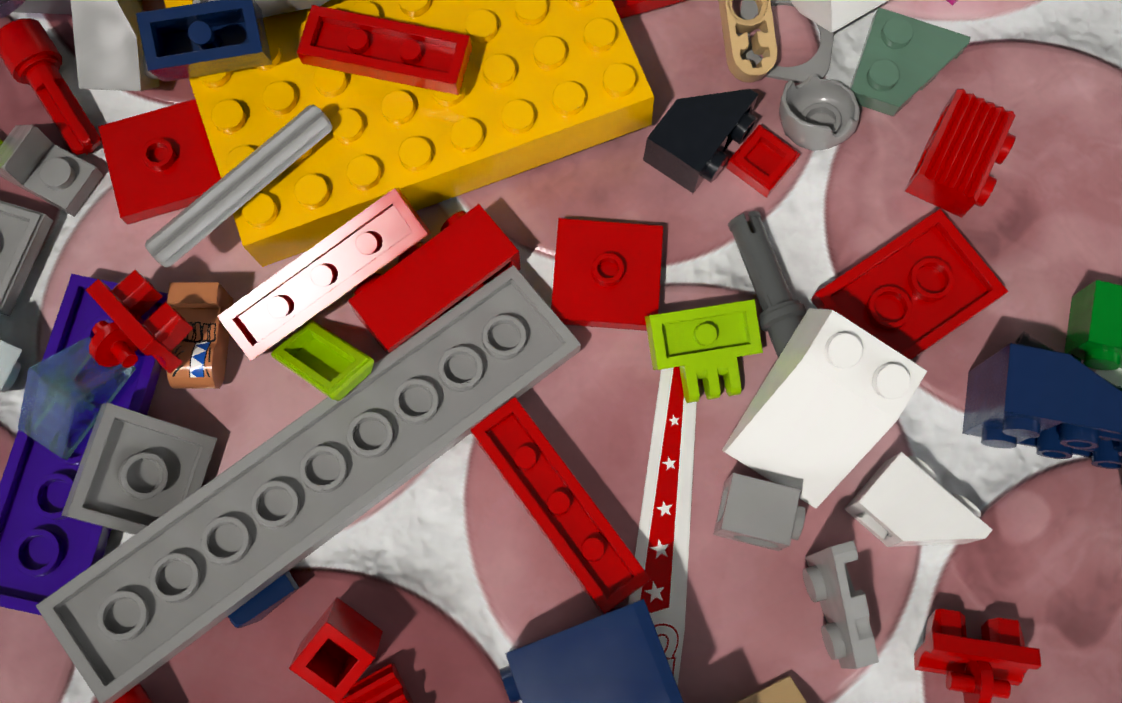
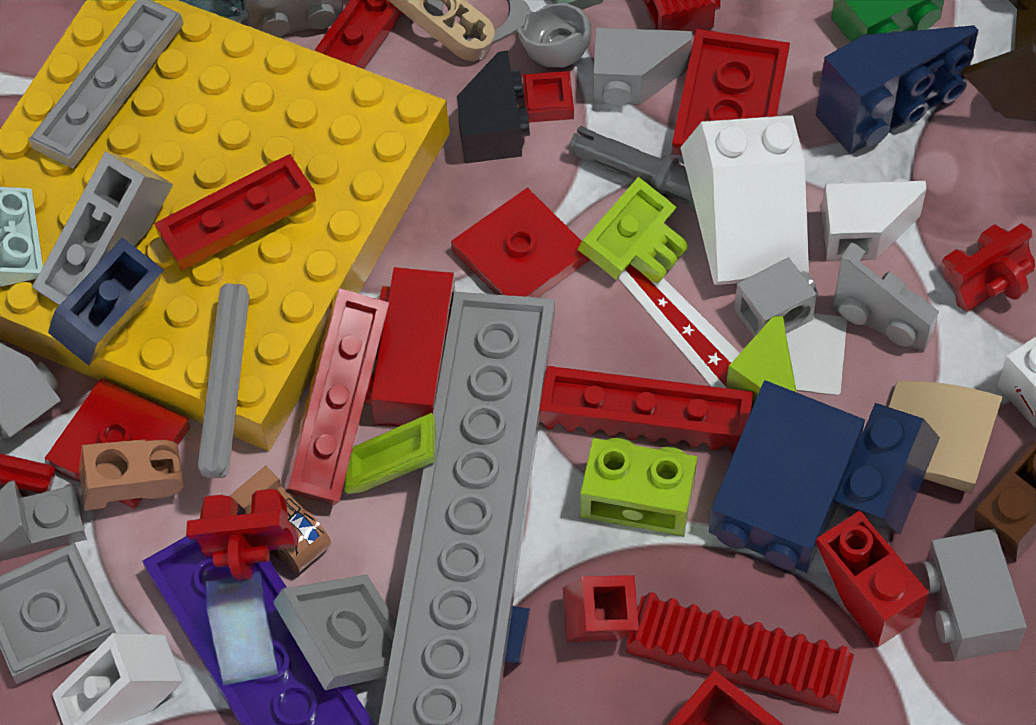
camera: 40 degrees left, 15 degrees down
(121, 192) = (129, 471): none -> nougat leg
(483, 567) = (638, 486): none -> lime brick
(681, 570) = (763, 359): none -> lime slope
(747, 584) = (818, 354): none -> white sticker
(859, 195) = (637, 63): none -> light grey slope

